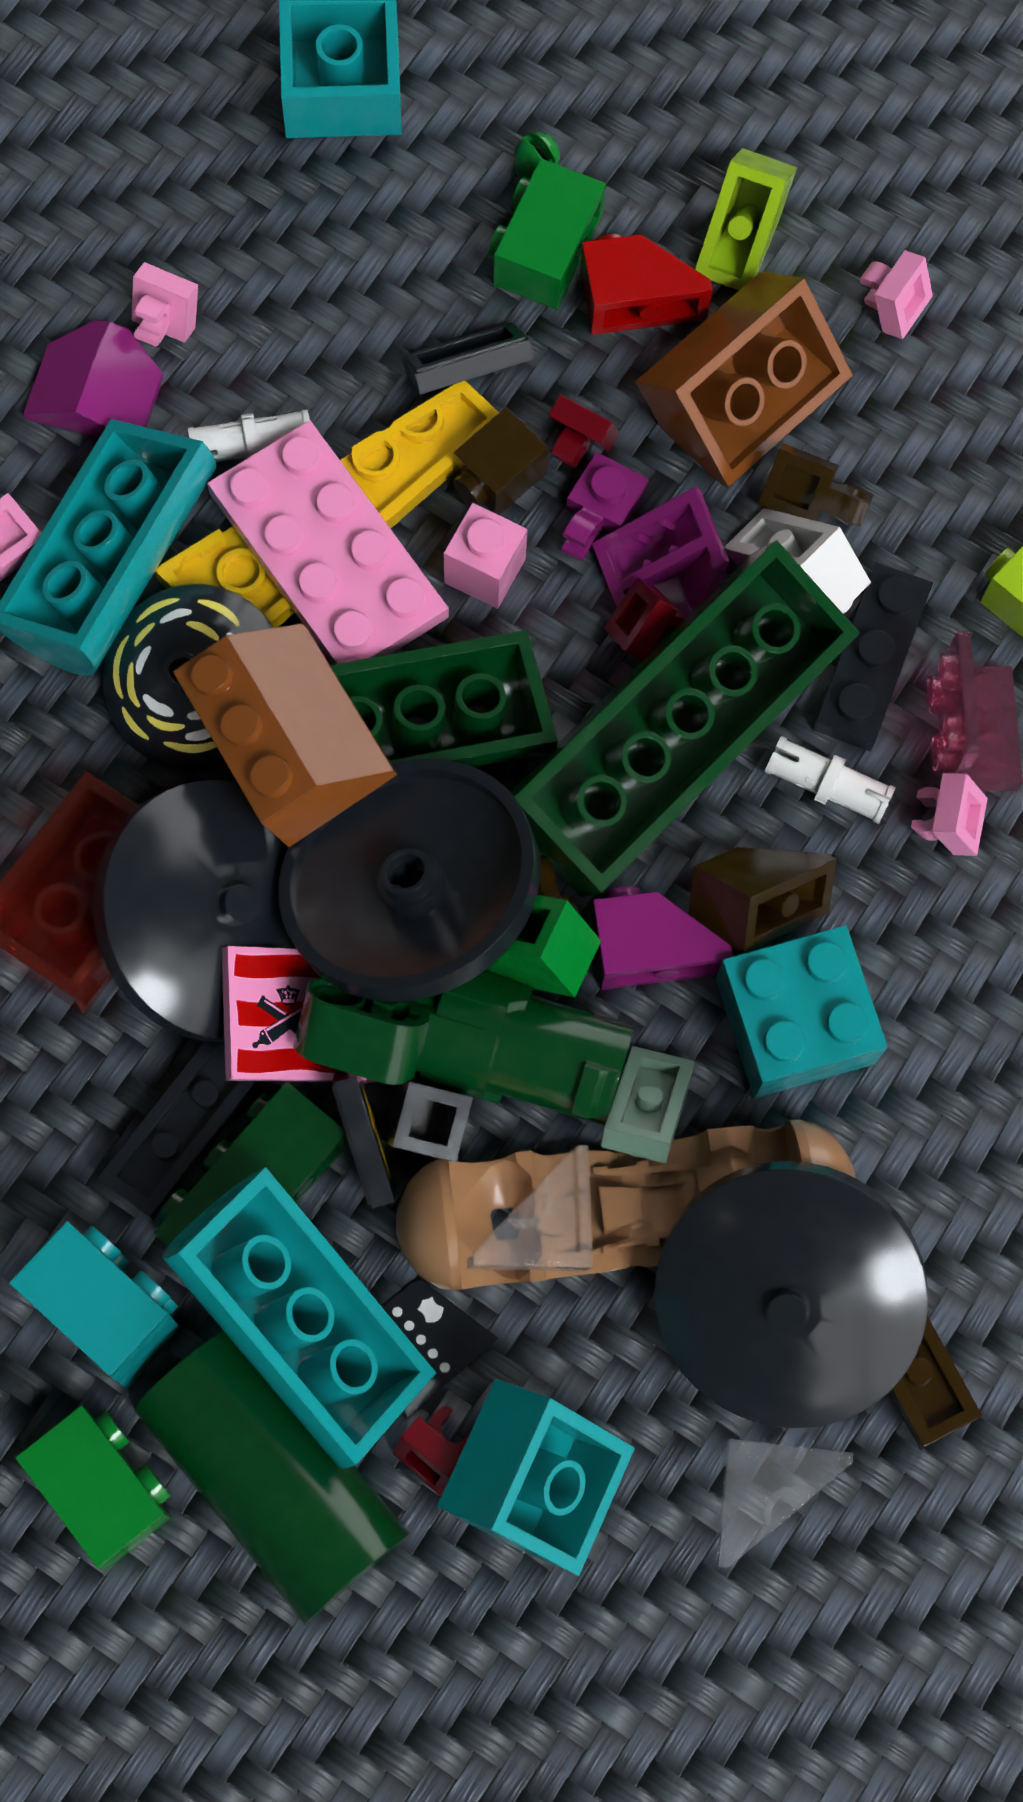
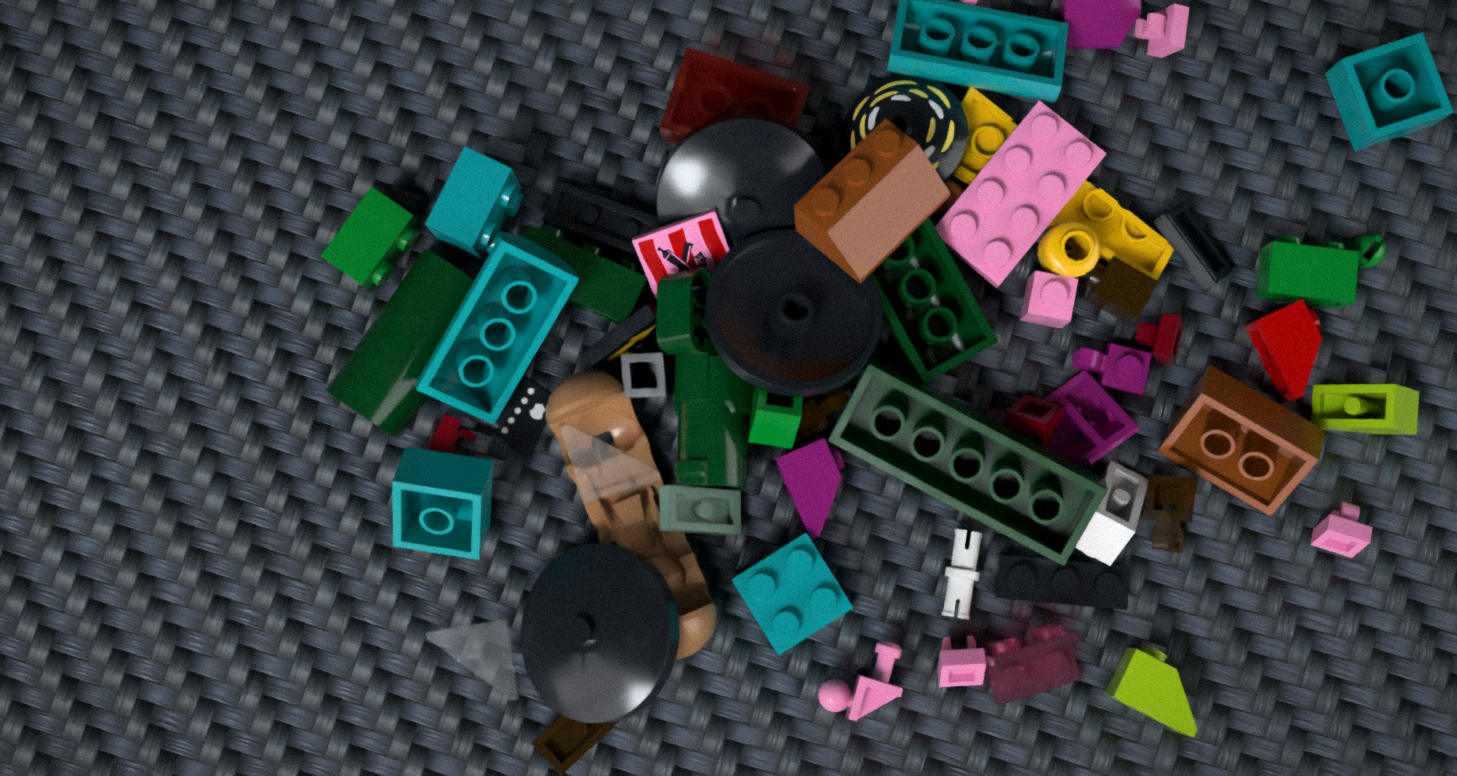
camera: 80 degrees right, 10 degrees up
(247, 436) = (1087, 116): white pin -> none
(427, 505) = (1081, 246): none -> yellow head
(760, 893) = (863, 546): dark brown slope -> none
(963, 953) = (867, 691): none -> bright pink piece

